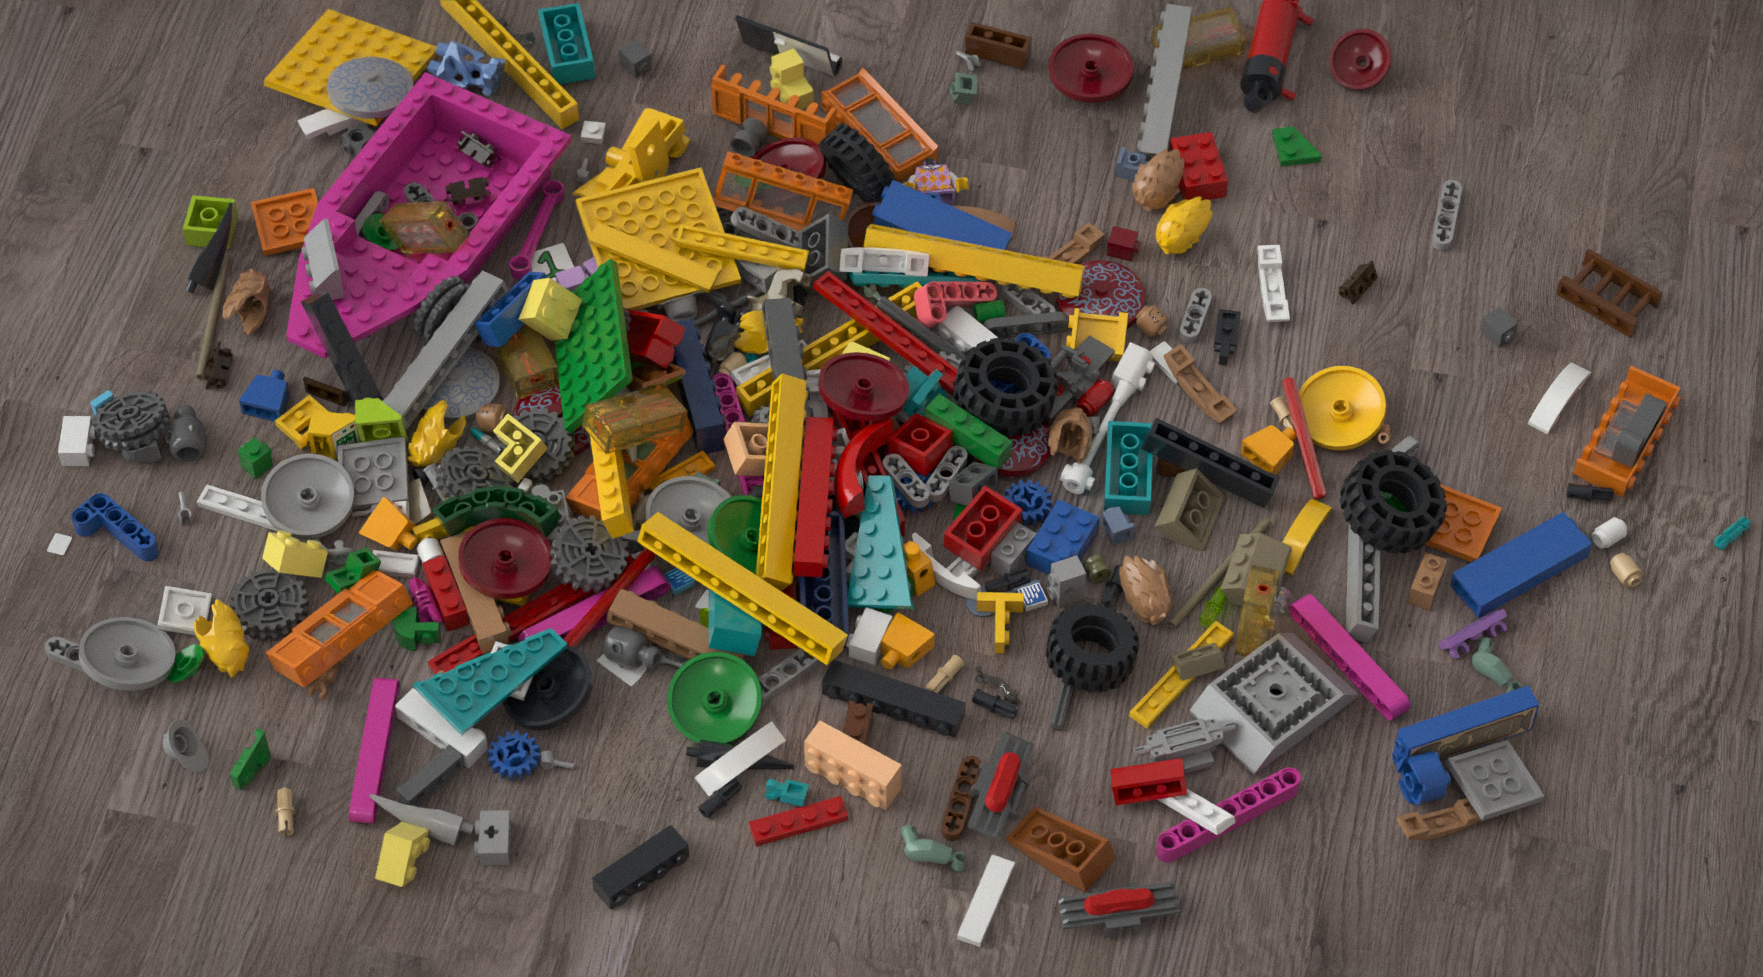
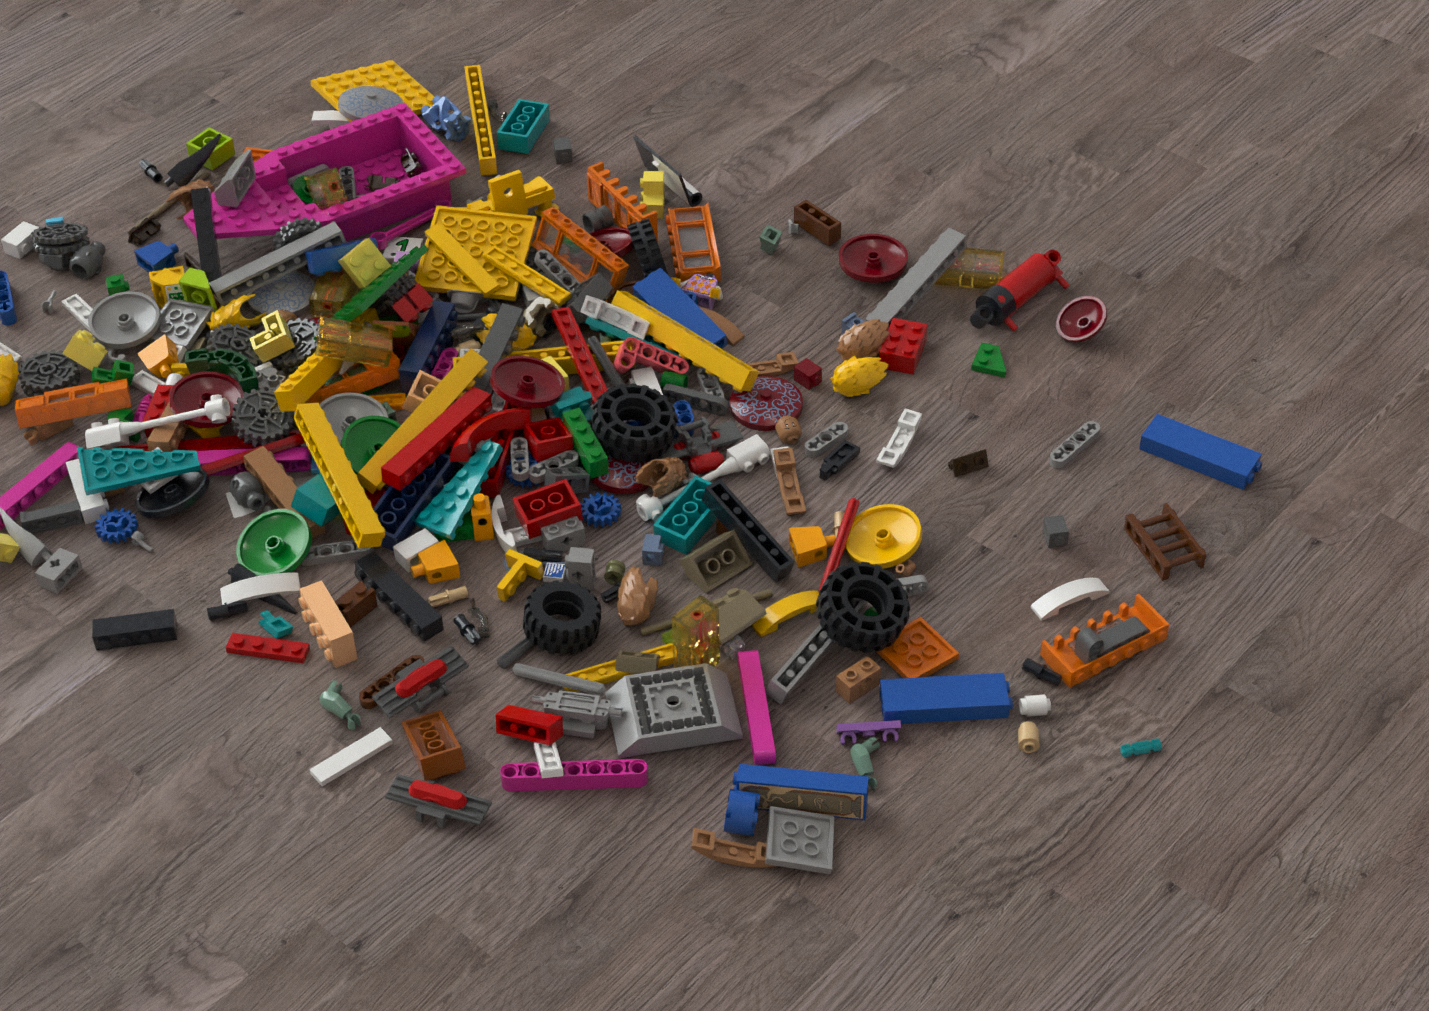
camera: 30 degrees right, 10 degrees down
(152, 280) = (150, 170): none -> black axle
(425, 643) = (117, 432): none -> white bar
(1064, 534) = (609, 538): blue brick -> none
(1106, 329) = (746, 420): yellow panel -> none
(1134, 717) = (559, 679): none -> light grey axle
(1576, 172) = (1201, 451): none -> blue brick

